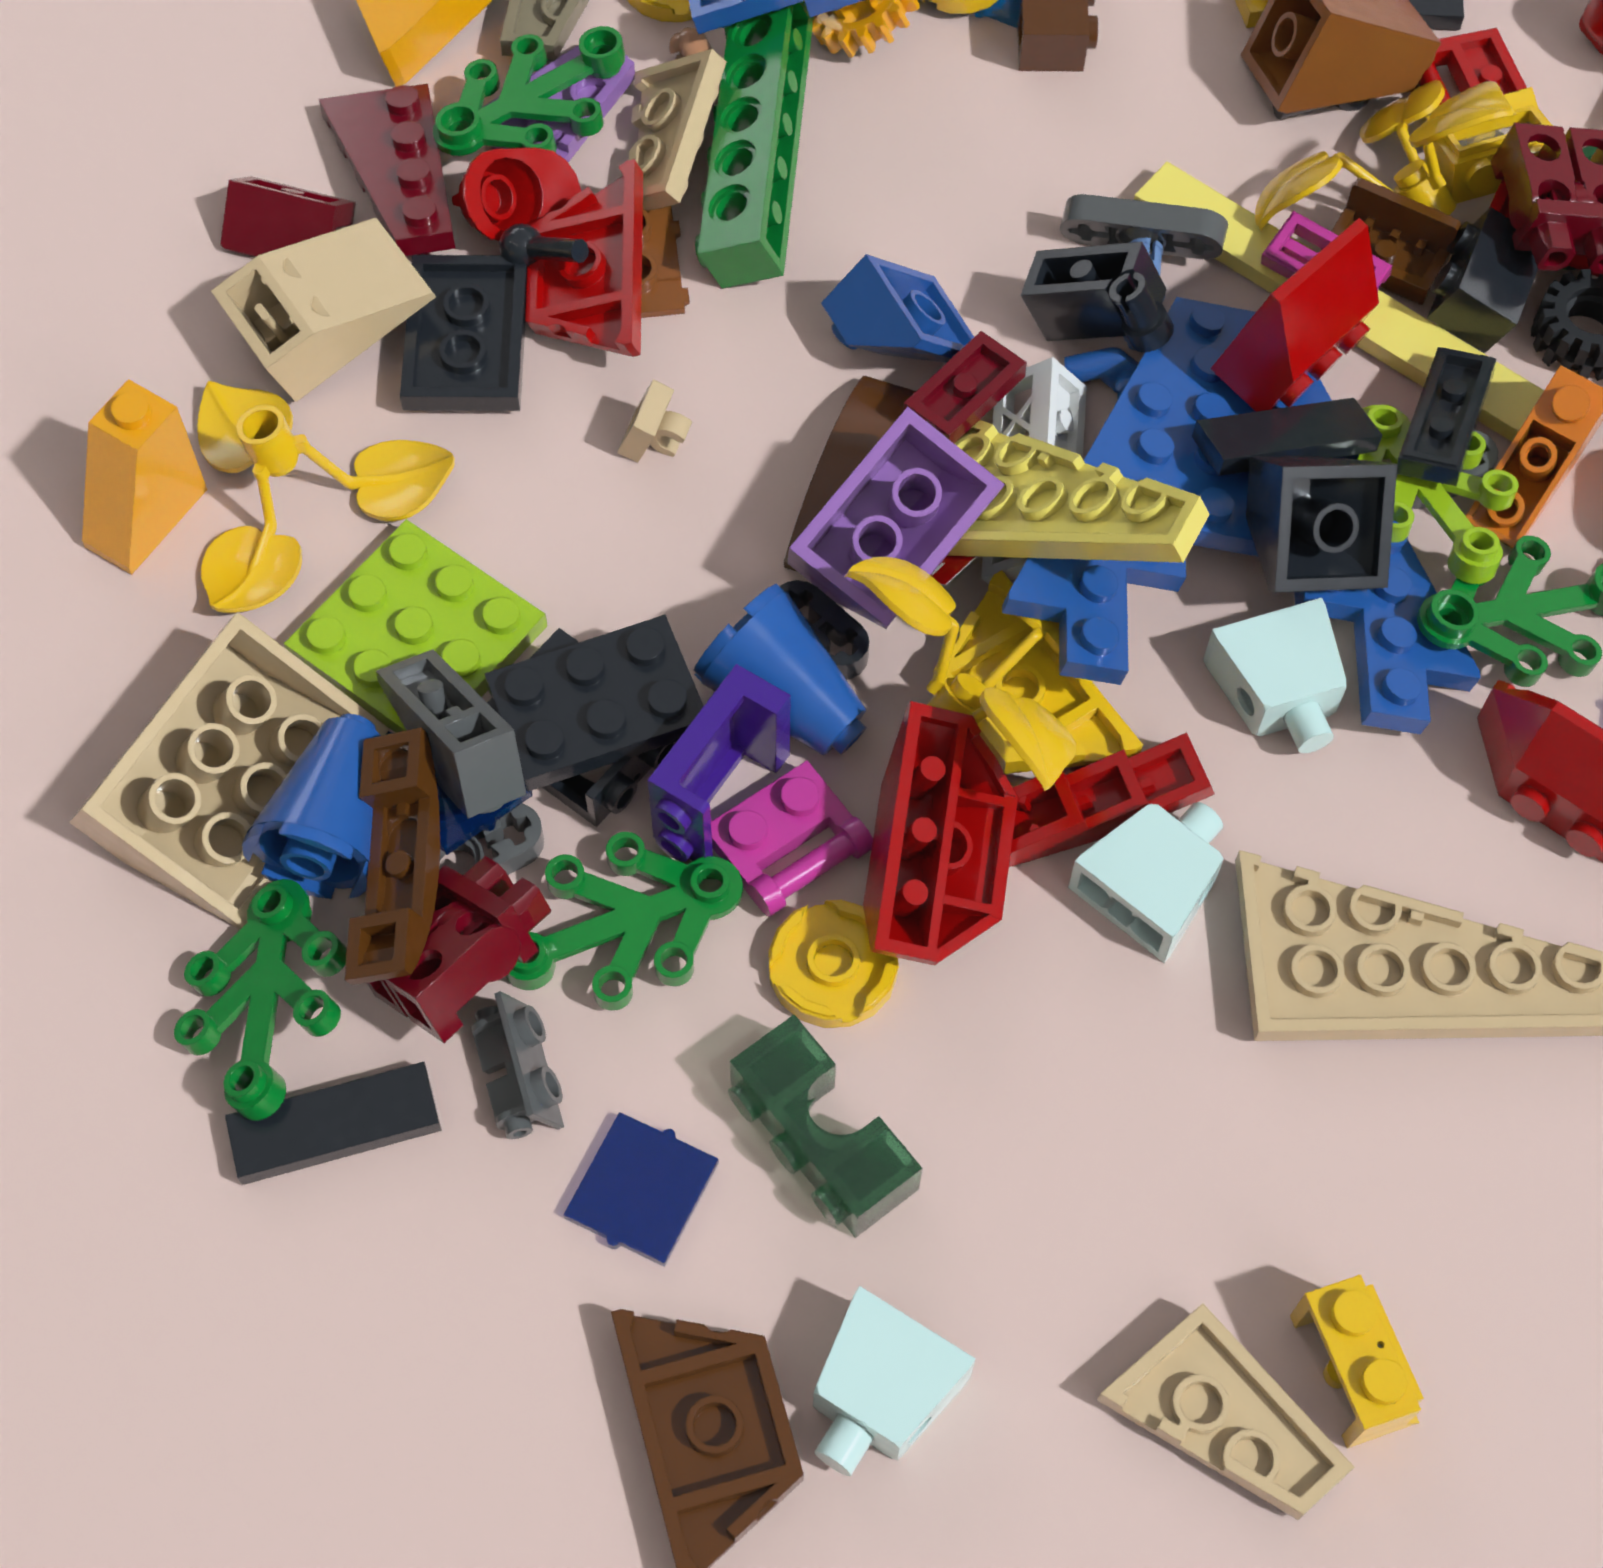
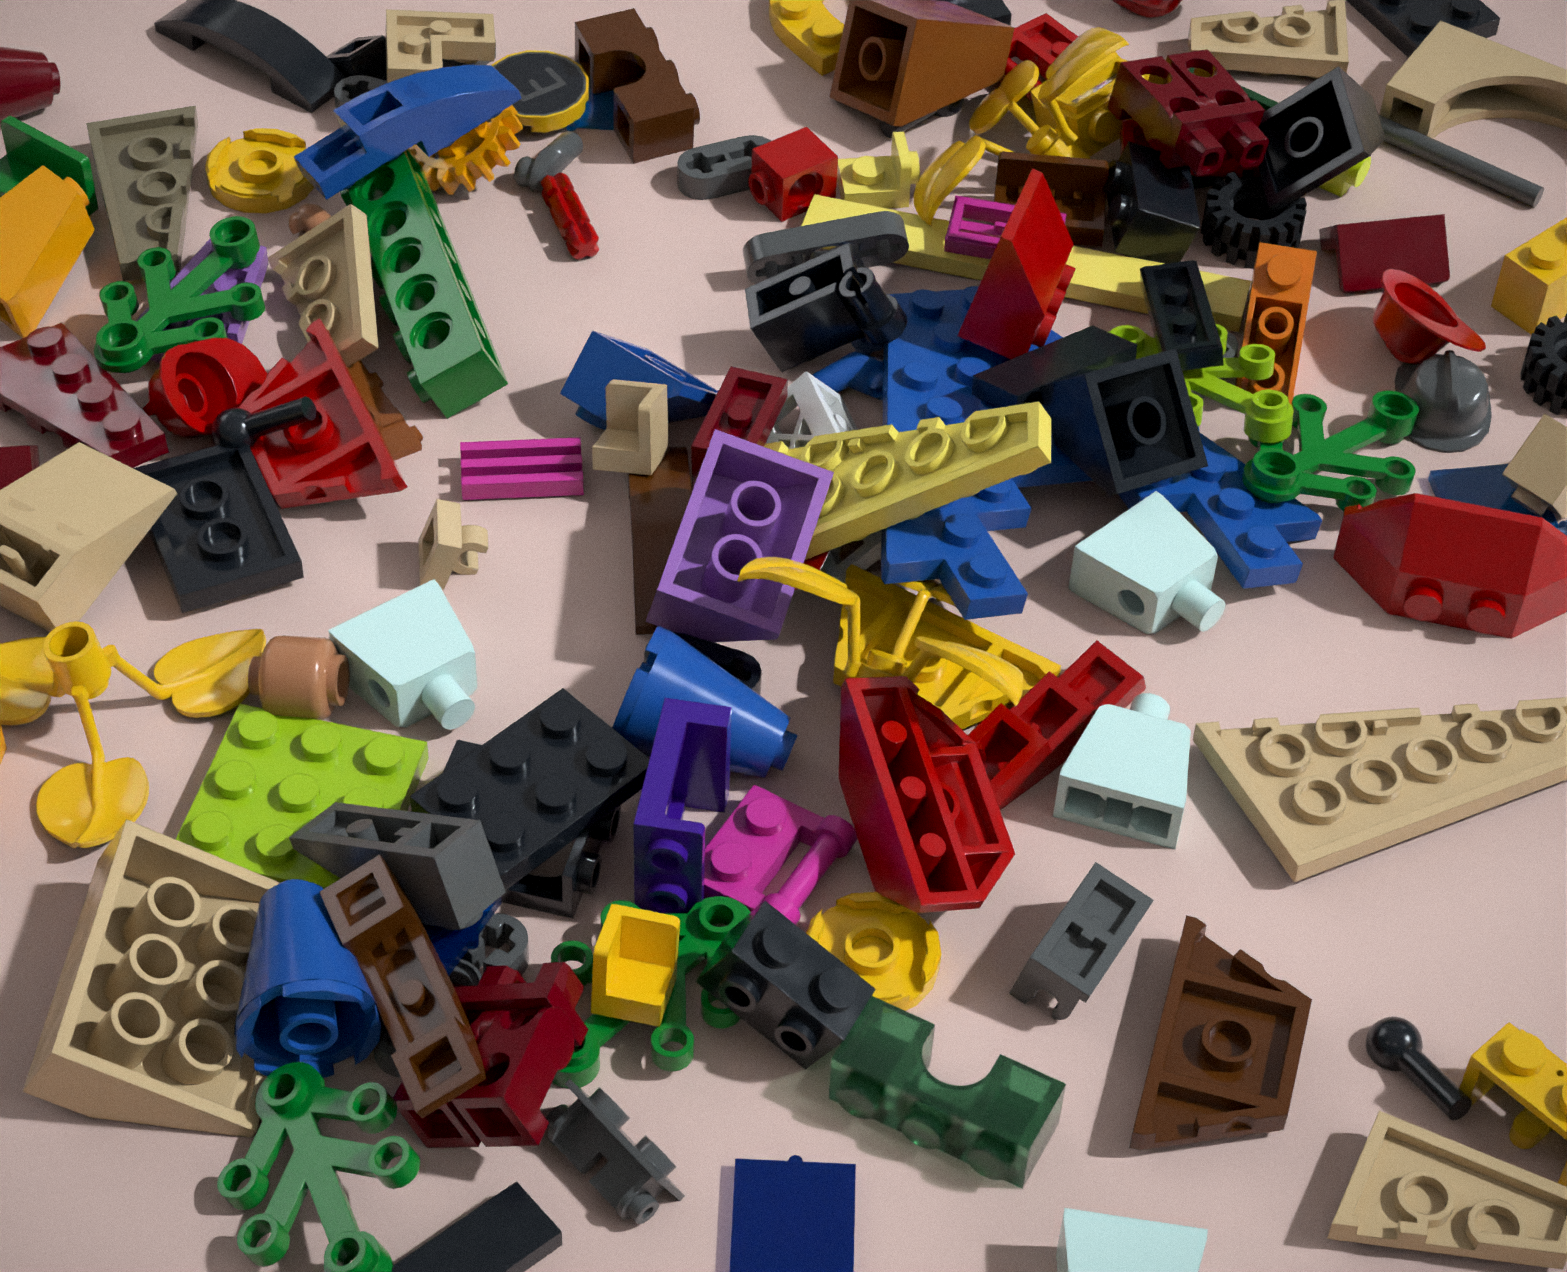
camera: 25 degrees left, 15 degrees down
(463, 514) = (300, 677): none -> nougat head
(567, 527) = (411, 658): none -> light aqua torso
(603, 906) = (635, 965): none -> yellow panel
(723, 976) = (785, 985): none -> black brick
(763, 357) = (528, 466): none -> dark pink tile
(867, 369) = (635, 428): none -> tan panel
(928, 112) = (569, 216): none -> red axle
(932, 51) = (549, 161): none -> dark grey arm
(1019, 1030) = (1083, 941): none -> dark grey hinge
(1094, 1179) = (1221, 1048): none -> reddish brown wing
(1101, 104) = (717, 168): none -> dark grey beam
(1155, 131) = (791, 171): none -> red brick
(1239, 163) = (880, 179): none -> light yellow bracket
(1265, 1240) = (1398, 1046): none -> black bar

